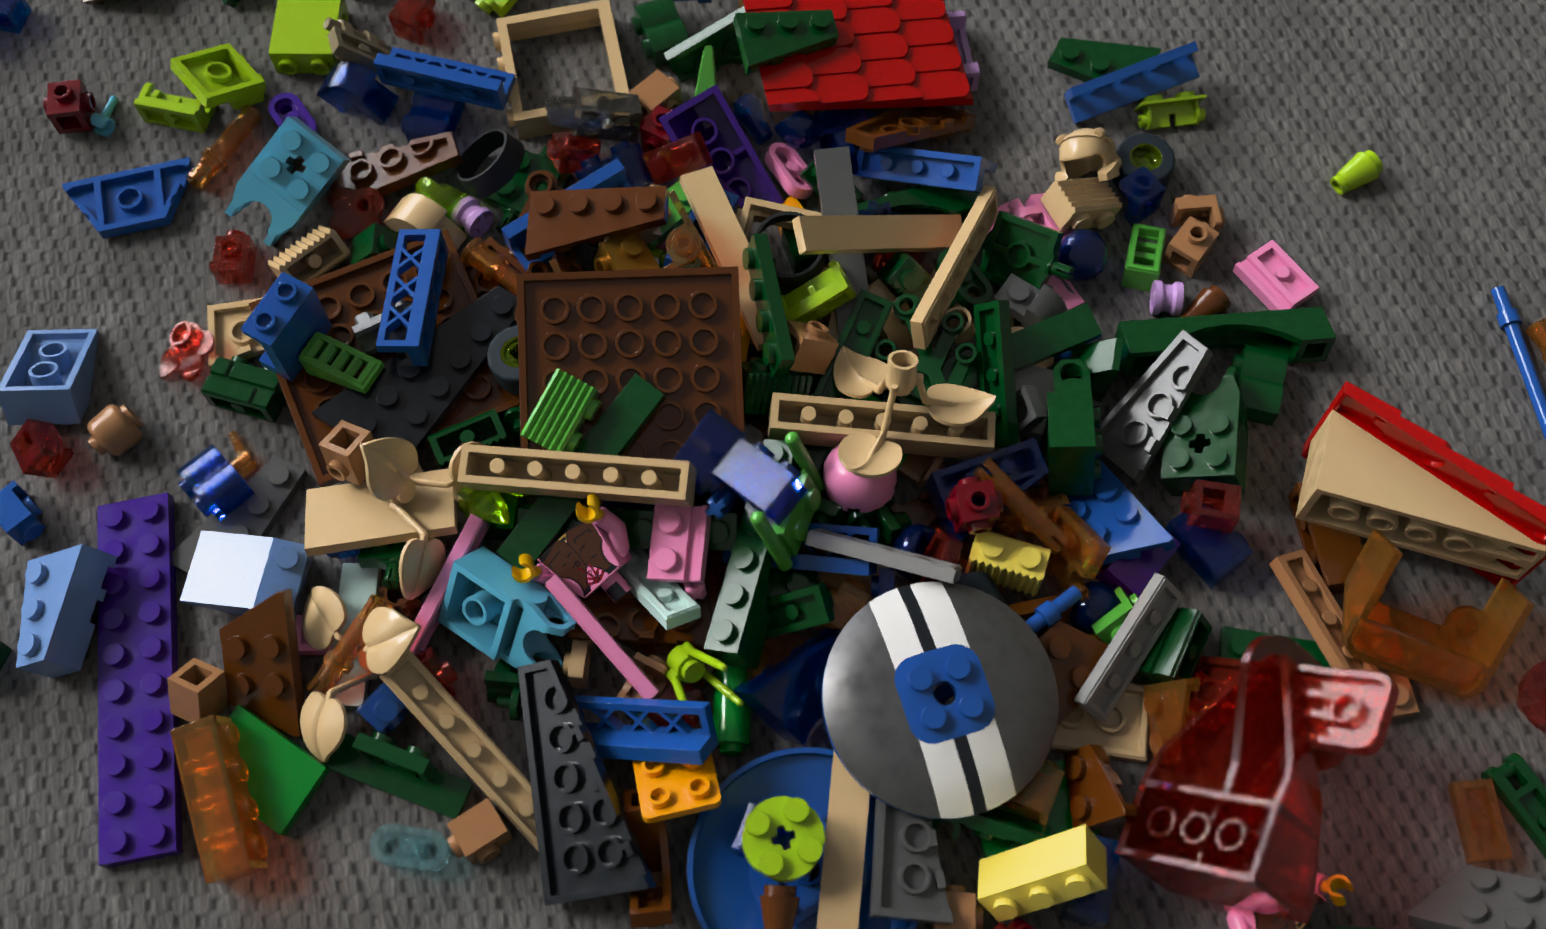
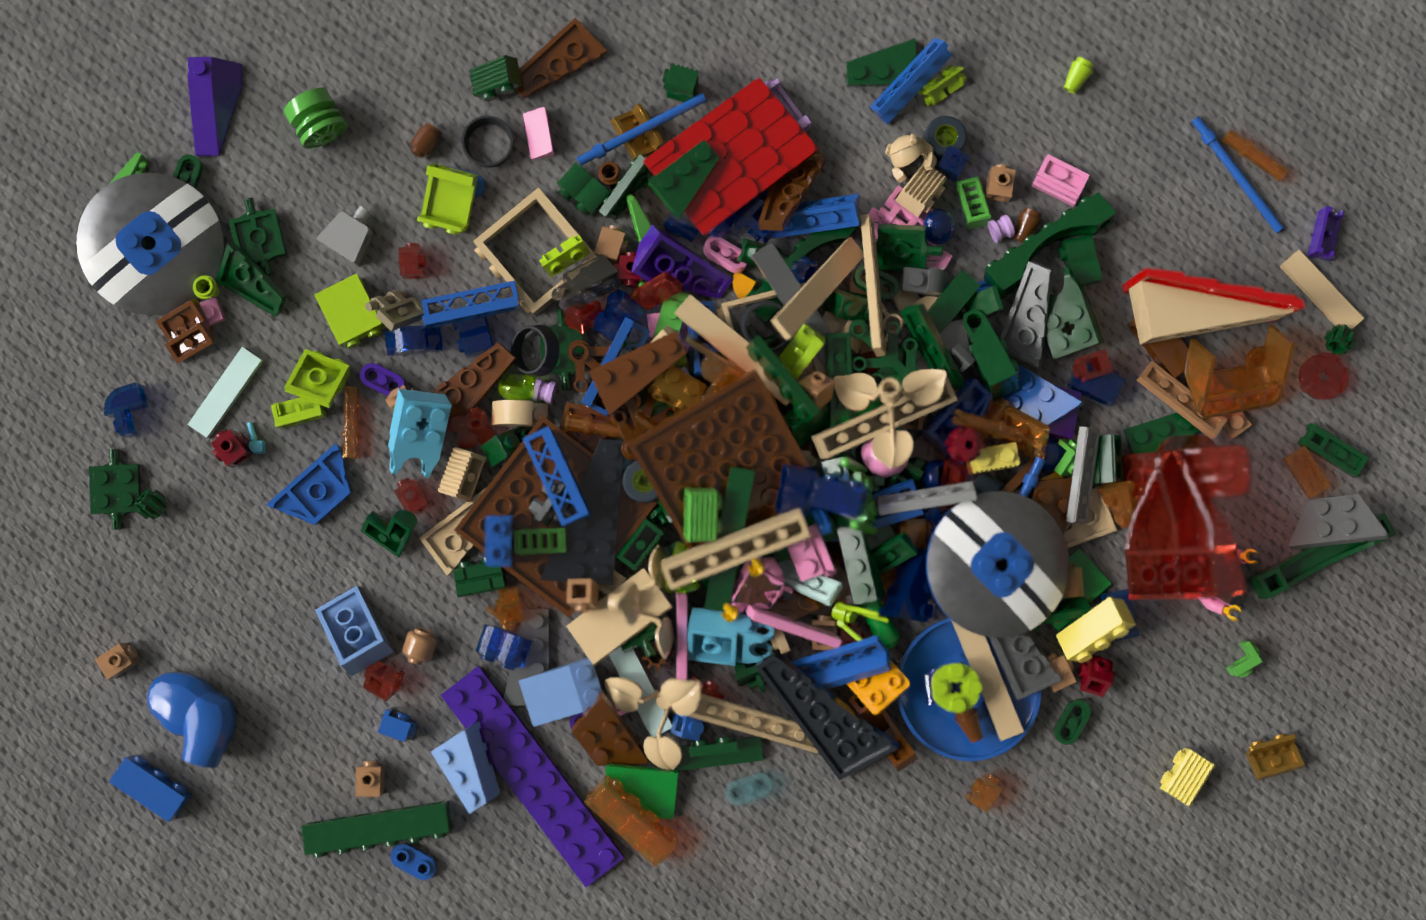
camera: 30 degrees left, 20 degrees up
(114, 53) = (225, 392): none -> light aqua tile
(180, 280) = (393, 534): none -> dark green brick
(187, 351) = (428, 575): clear red plate -> none
(197, 691) = (579, 771): medium nougat brick -> none
(255, 436) = (509, 606): none -> clear orange brick
(341, 658) = (650, 711): clear orange pin -> none
(478, 833) = (781, 762): medium nougat brick -> none
(595, 74) = (556, 262): none -> lime hinge
(700, 16) = (607, 170): none -> reddish brown cone
(1094, 789) = (1100, 566): reddish brown wing -> none
(1202, 208) = (989, 155): medium nougat bracket -> none

